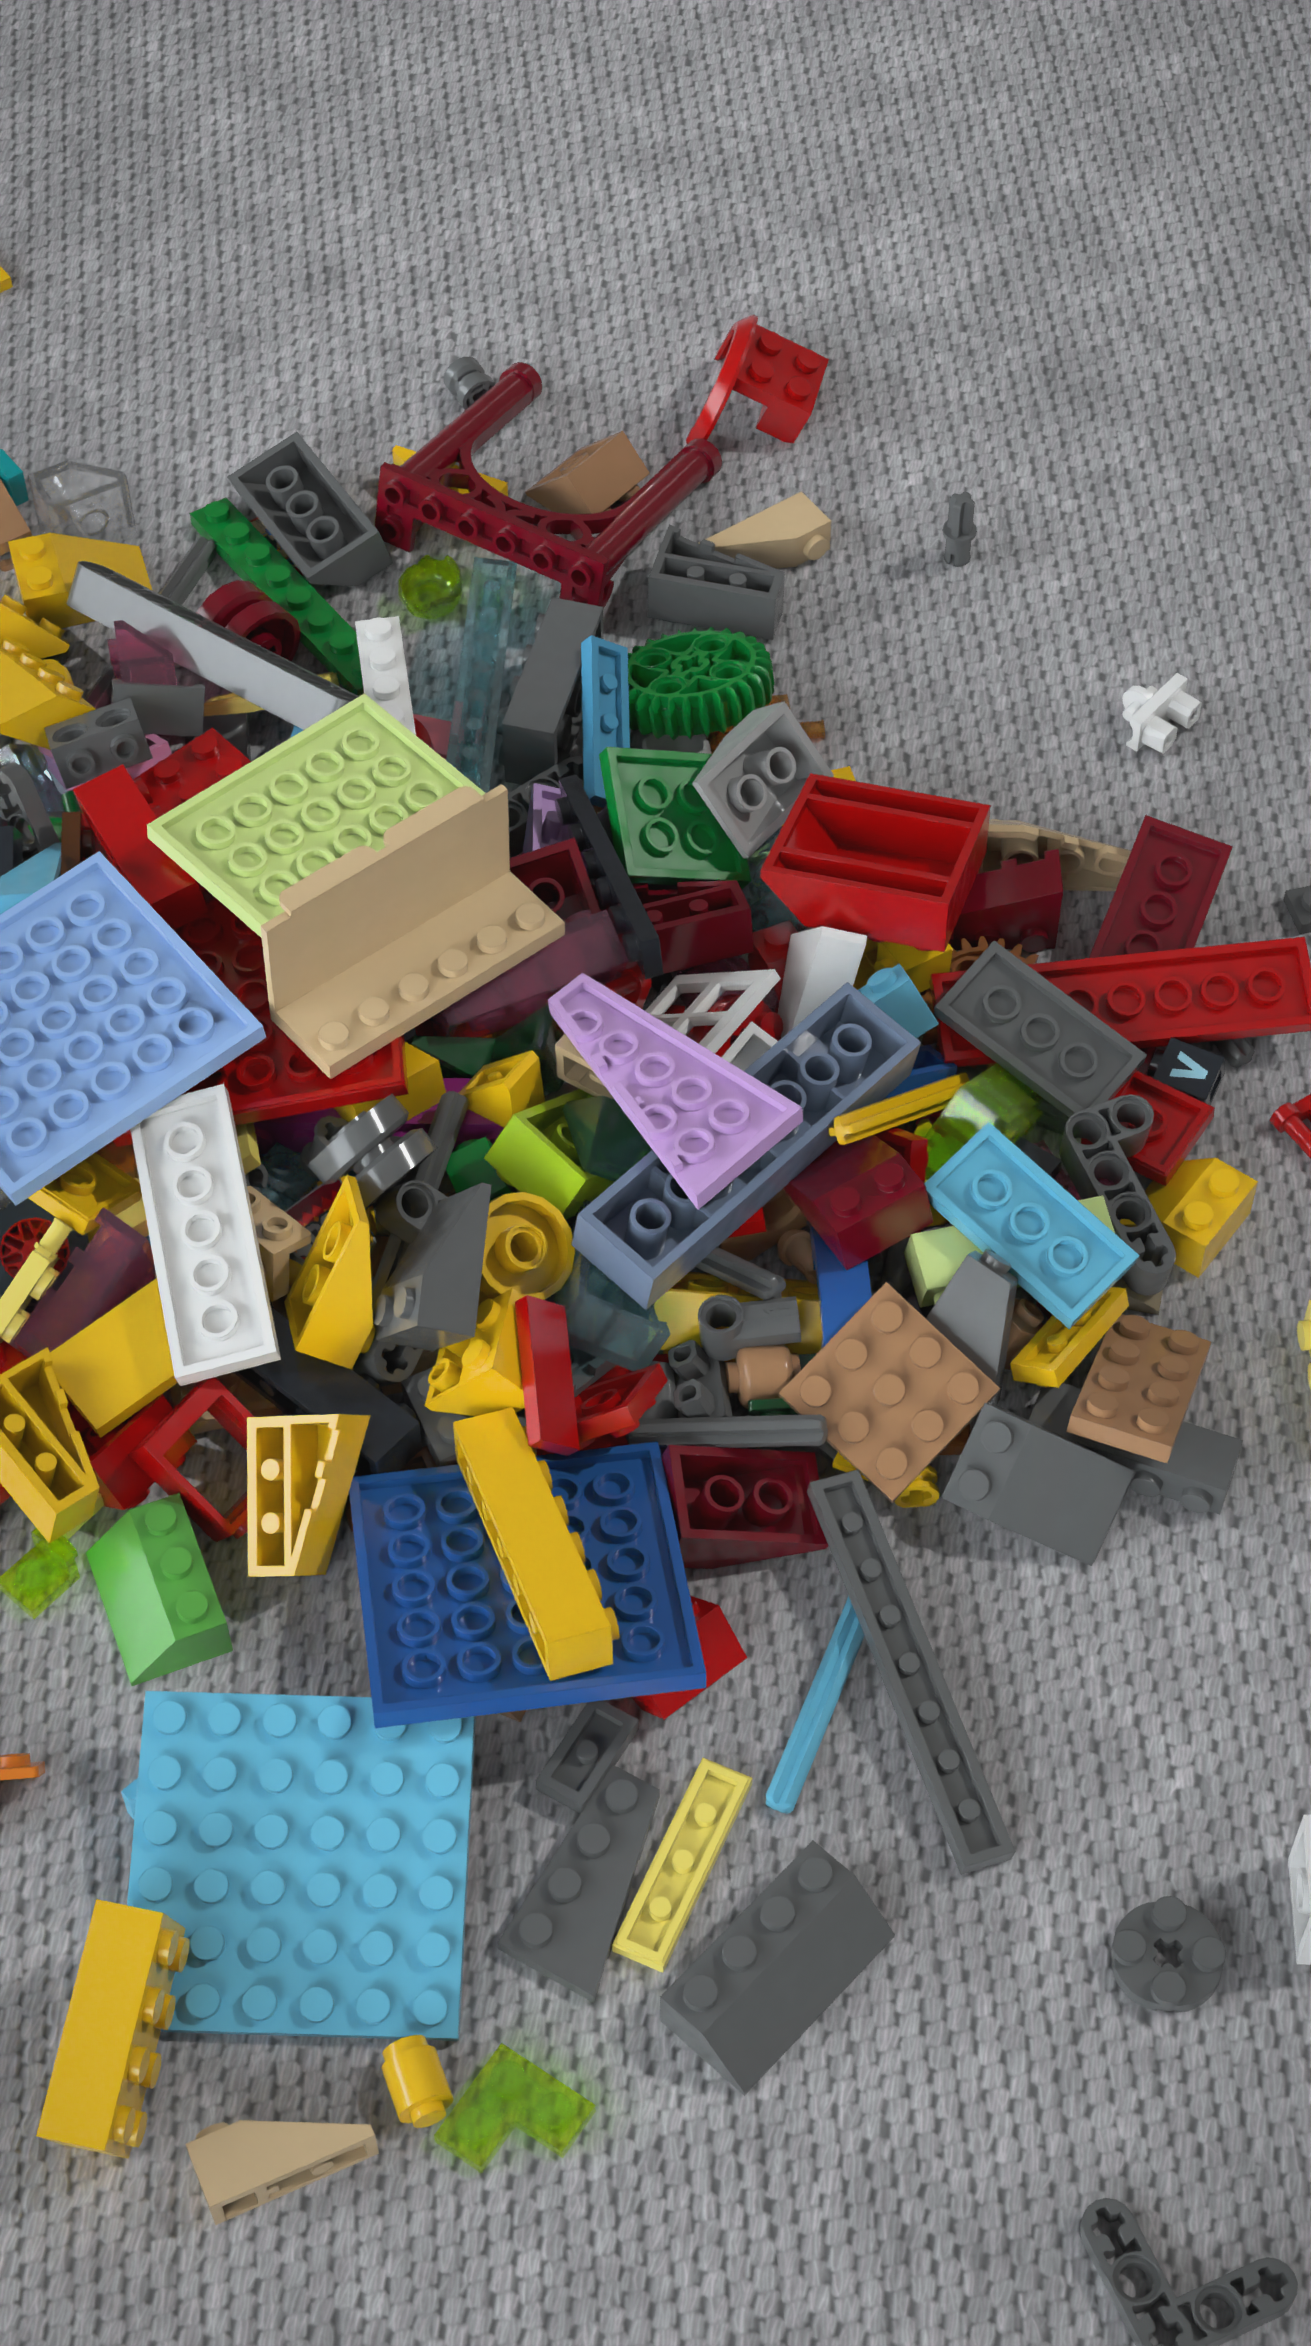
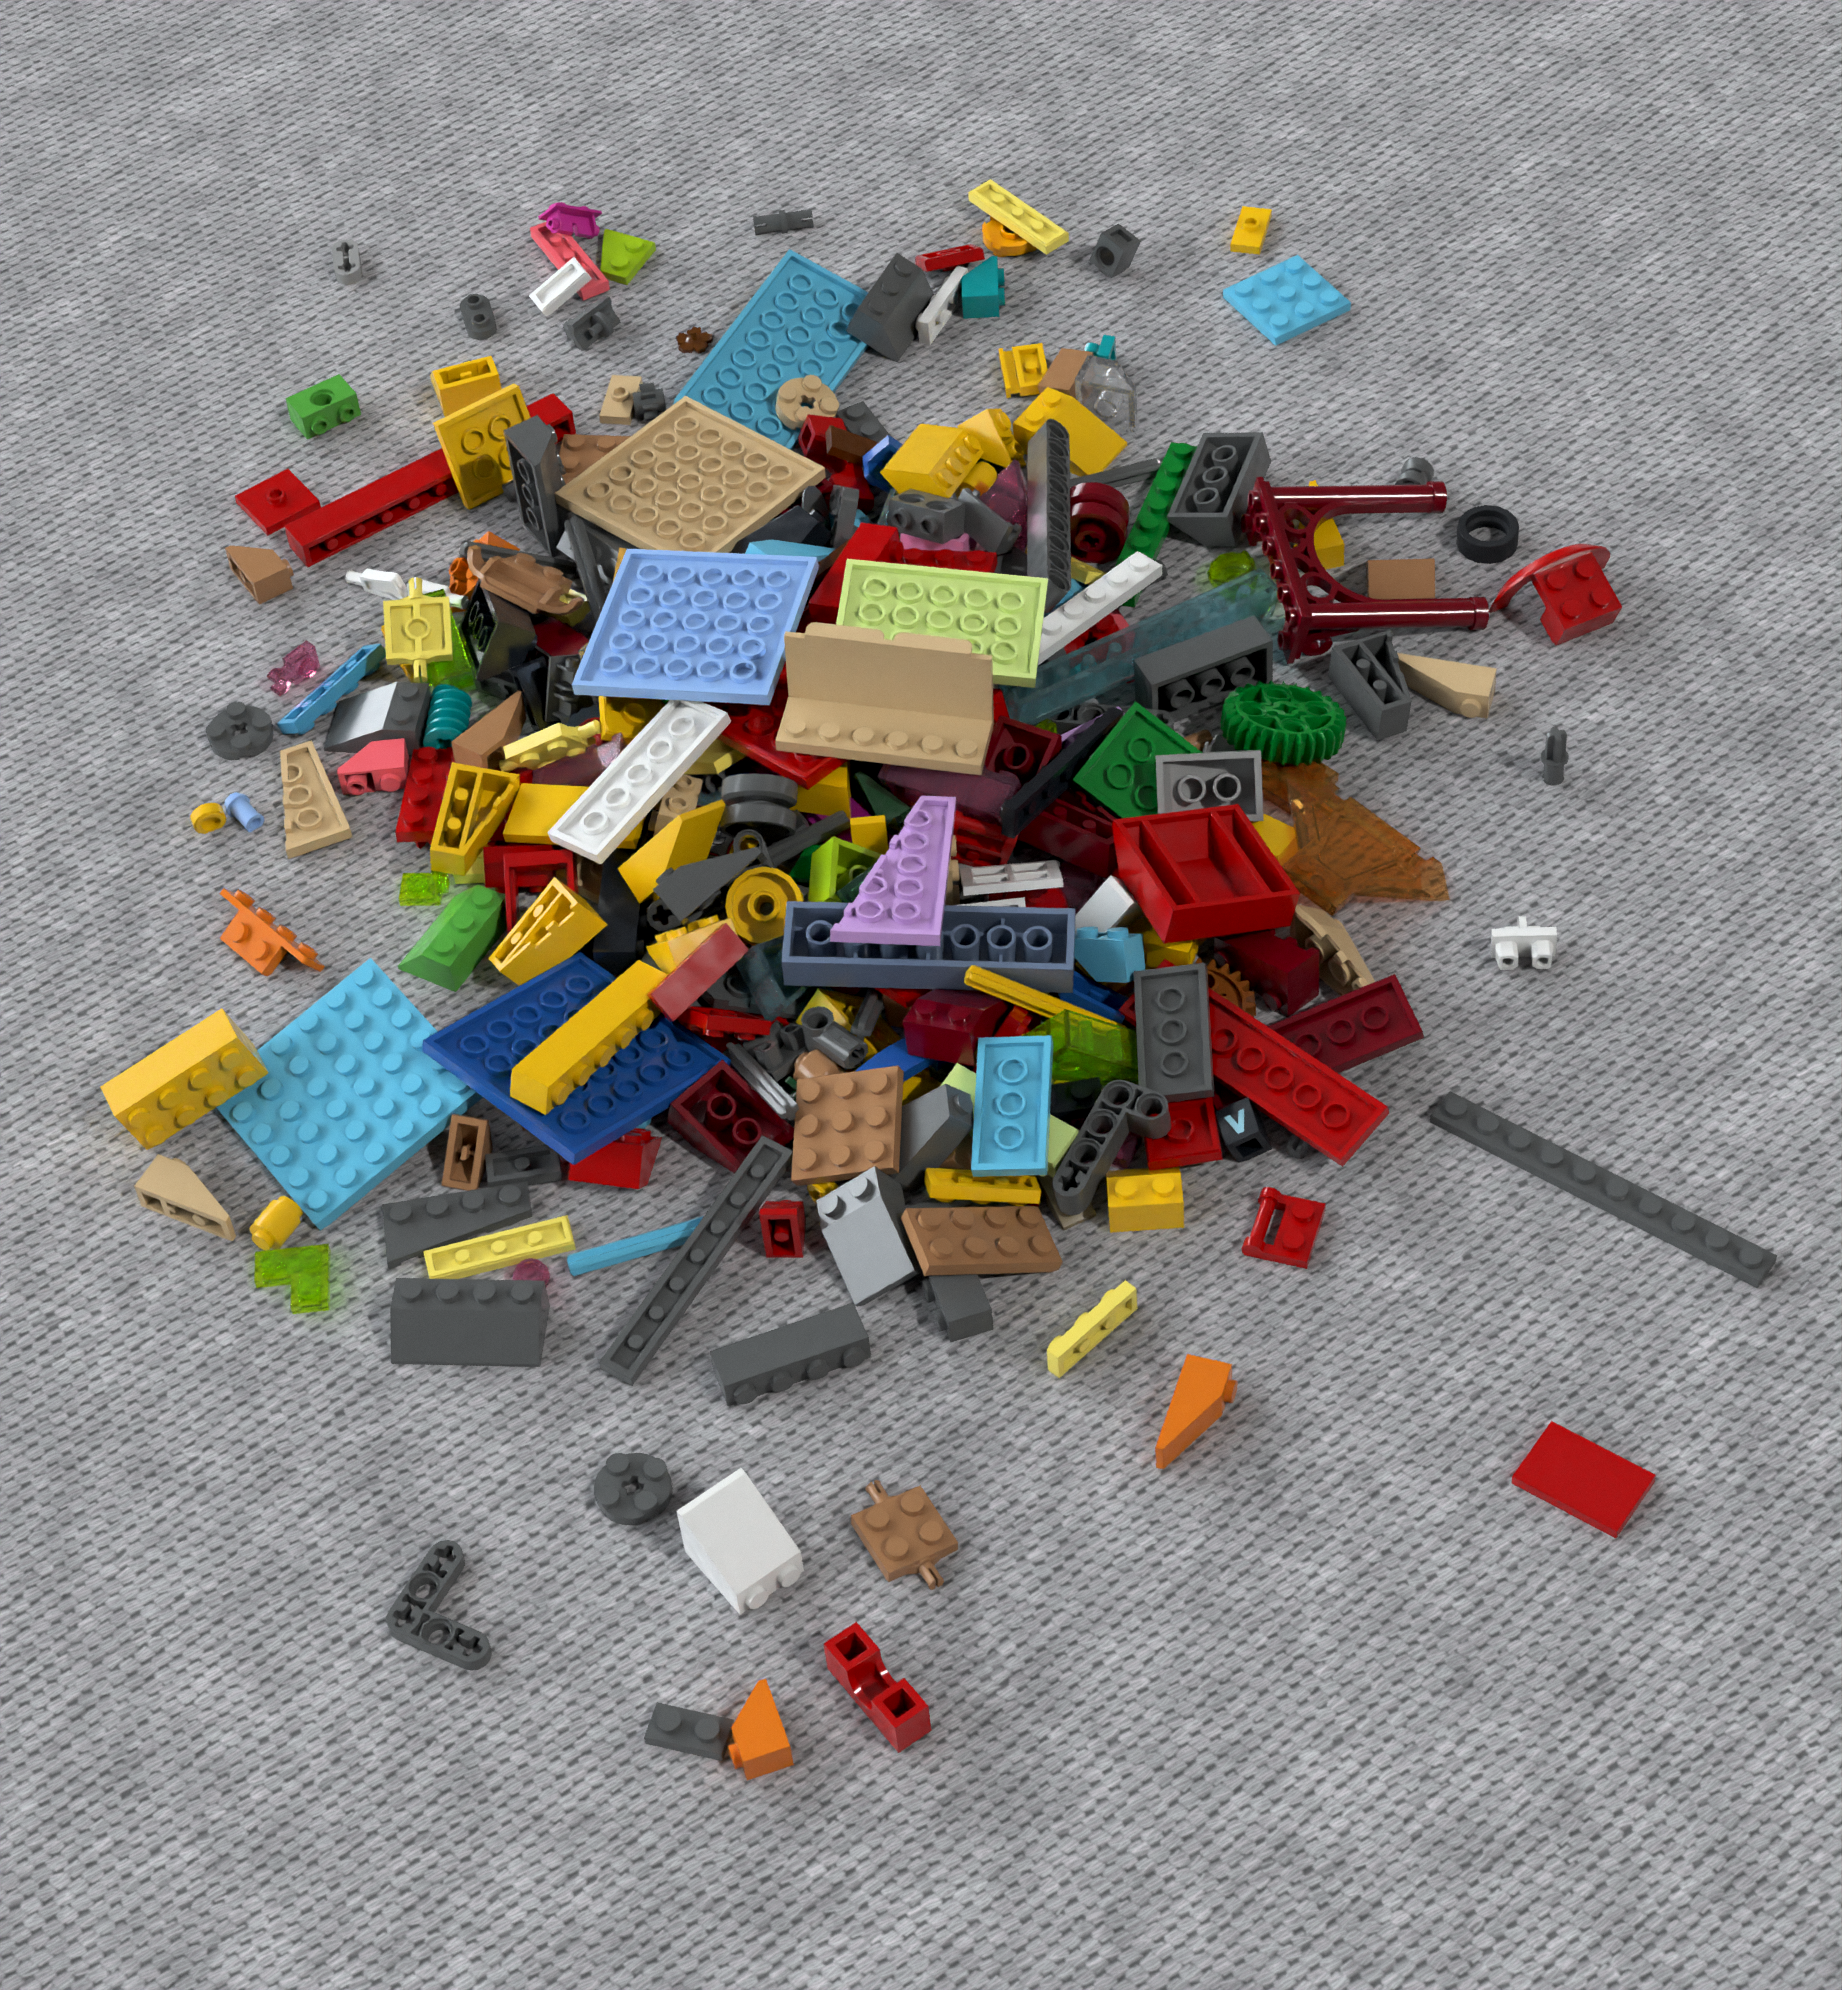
camera: 55 degrees right, 5 degrees down
(104, 309) = (1286, 300): none -> medium azure plate
(516, 1799) = (466, 1151): none -> medium nougat slope
(603, 708) = (1206, 693): dark azure plate -> none
(604, 408) = (1487, 551): none -> black tyre
(758, 1856) = (532, 1270): none -> clear pink plate
(914, 744) = (1353, 852): none -> clear orange plate
(939, 1552) = (783, 1228): none -> red slope
(1121, 1671) = (790, 1354): none -> dark grey brick

